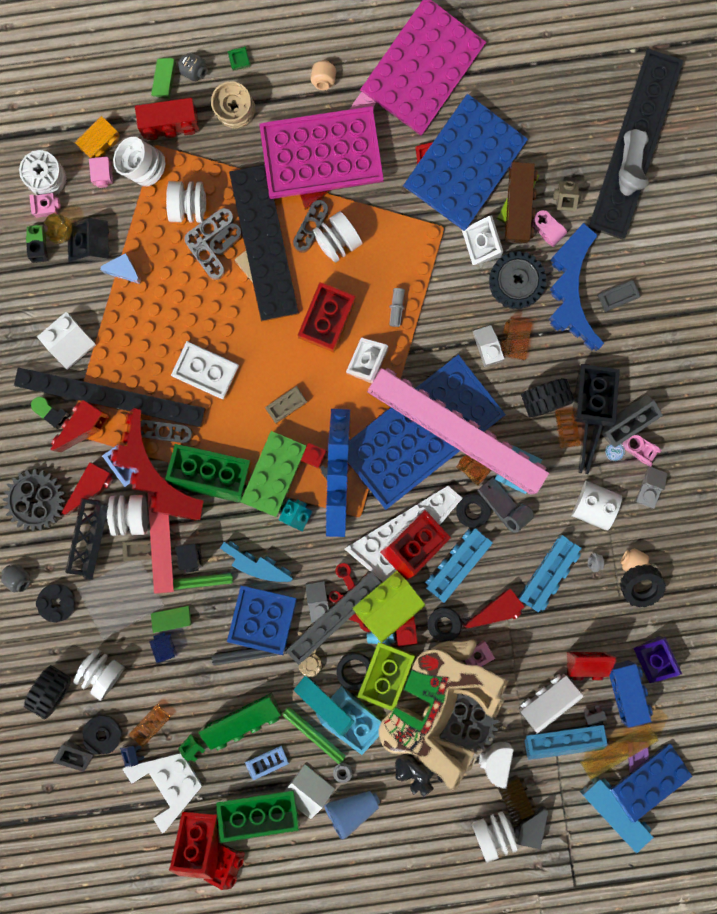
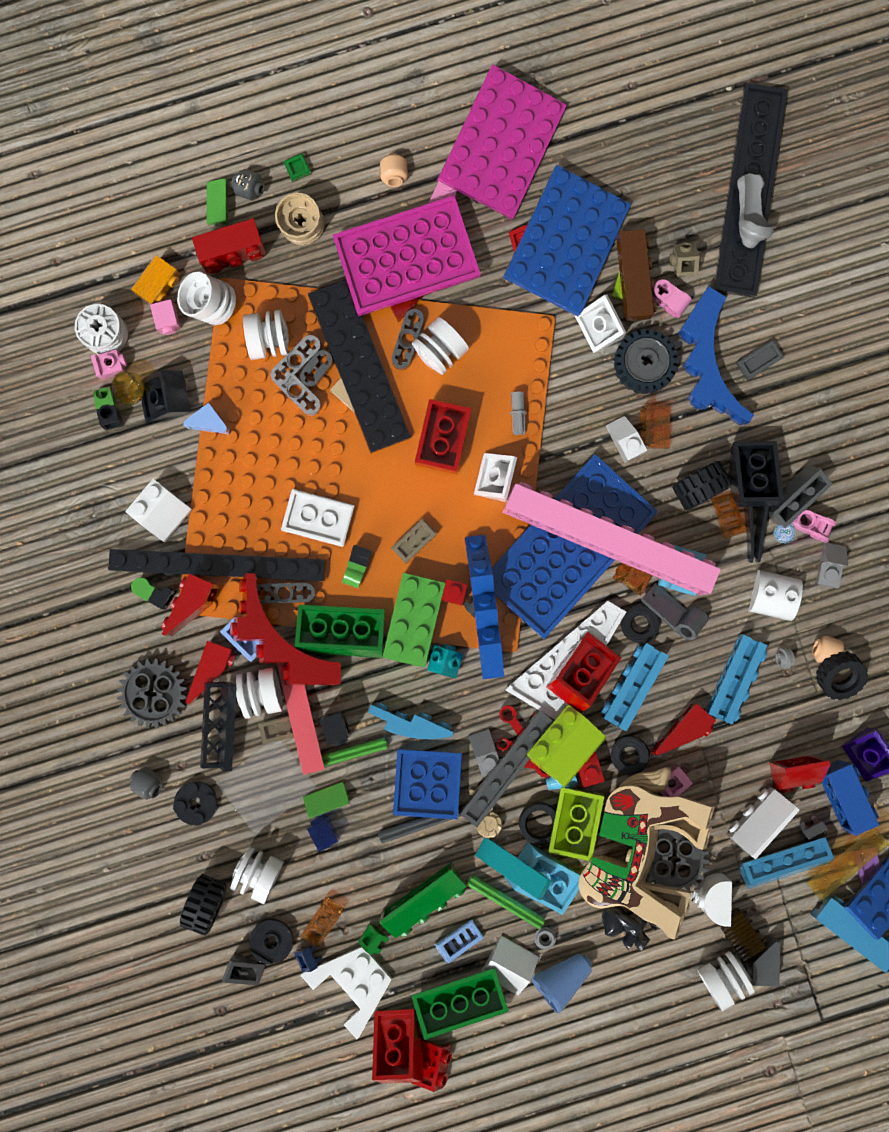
camera: 15 degrees left, 0 degrees up
(232, 418) = (357, 566): none -> leg

